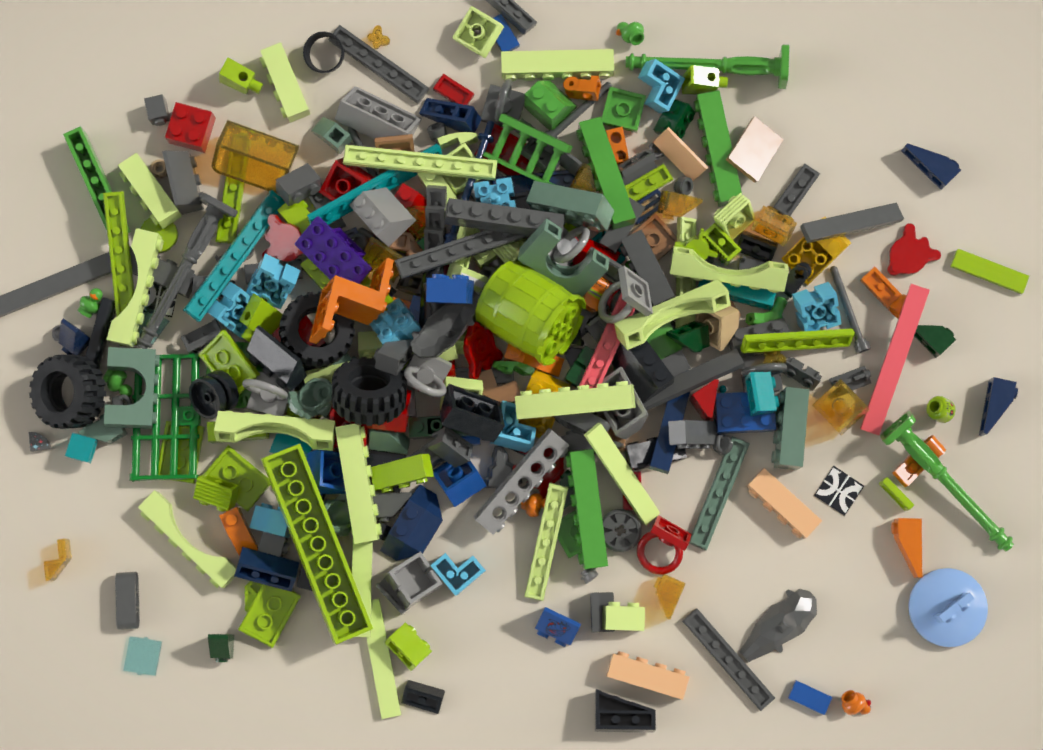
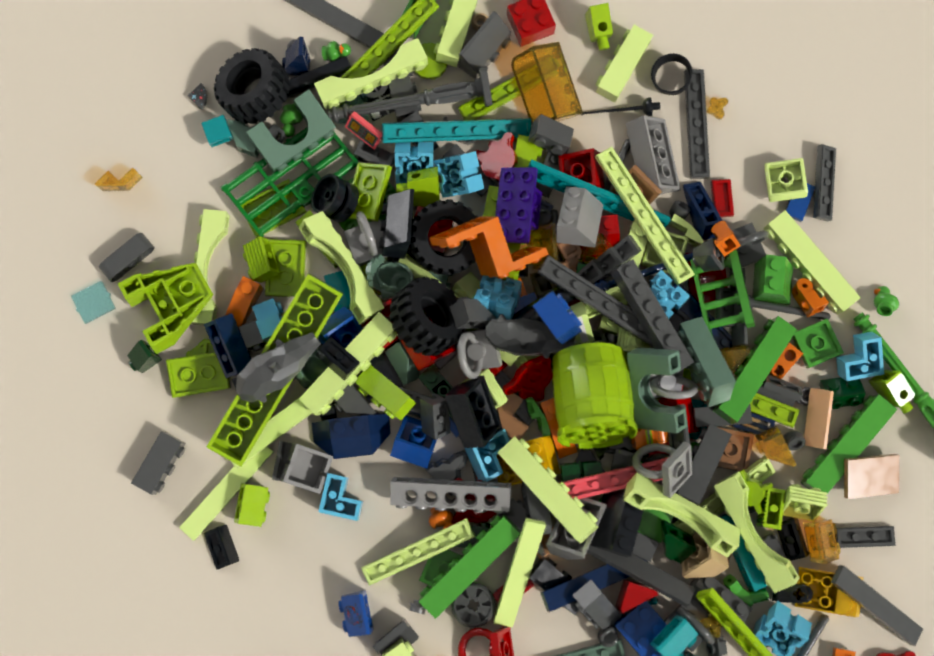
camera: 50 degrees right, 0 degrees up
(176, 329) = (364, 130): none -> tile
(195, 583) = (176, 298): none -> lime wedge
(316, 541) = (275, 368): none -> dark grey piece
(318, 697) = (159, 463): none -> dark grey brick
(332, 134) = (612, 131): sand green slope -> none
(335, 92) = (647, 108): none -> black sword
(346, 488) = (337, 358): none -> black slope
(489, 115) = (725, 238): none -> orange leg
(491, 138) = (708, 256): none -> dark grey slope

